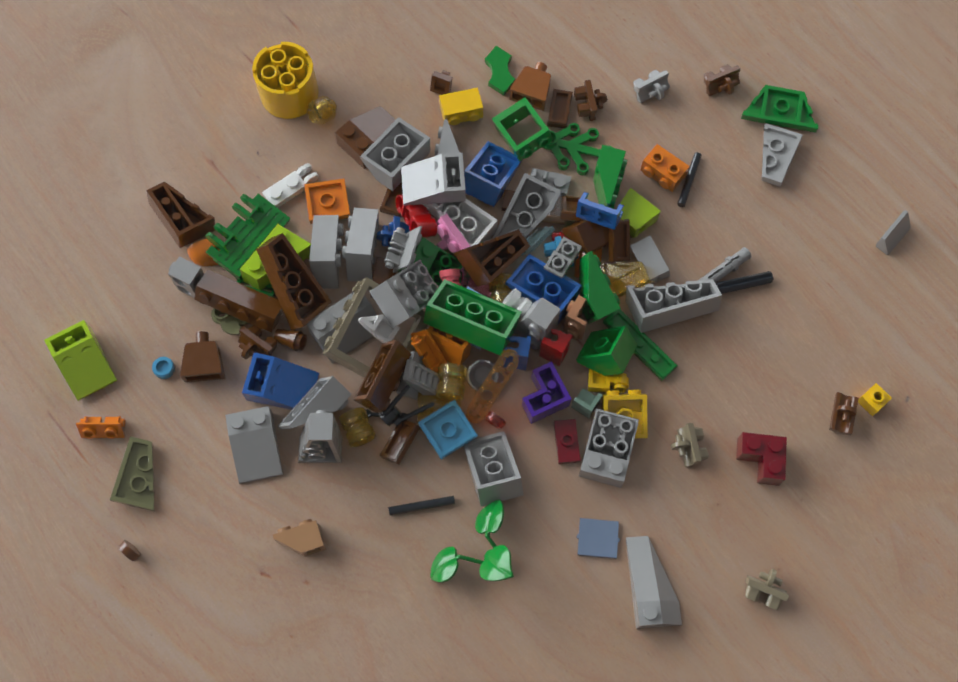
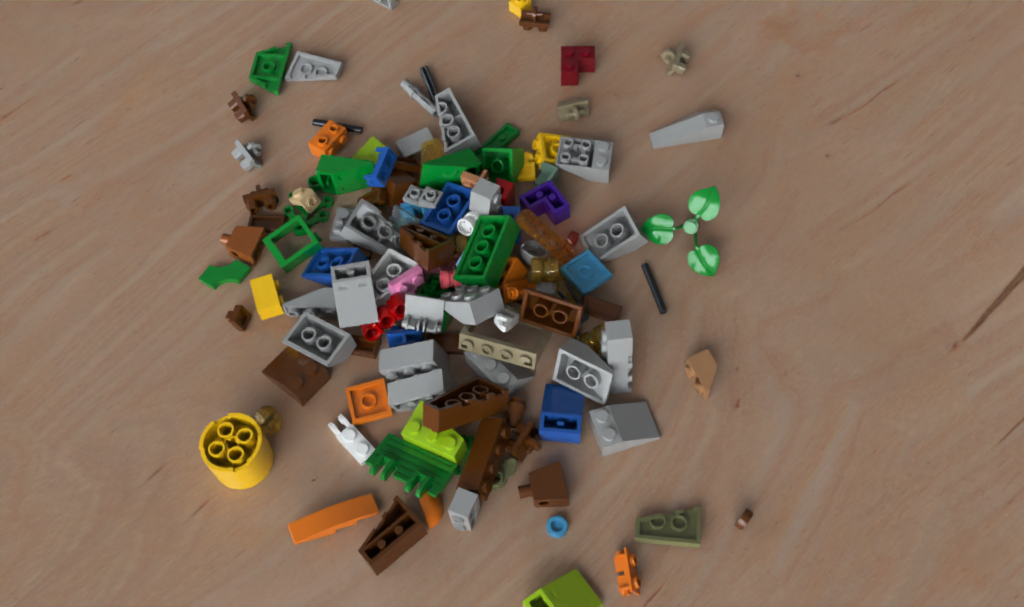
camera: 90 degrees left, 10 degrees down
(209, 166) = (332, 518): none -> orange slope
(566, 441) = (581, 191): dark red plate -> none
(581, 141) = (305, 197): none -> tan bracket
(598, 538) = (657, 165): sand blue piece -> none

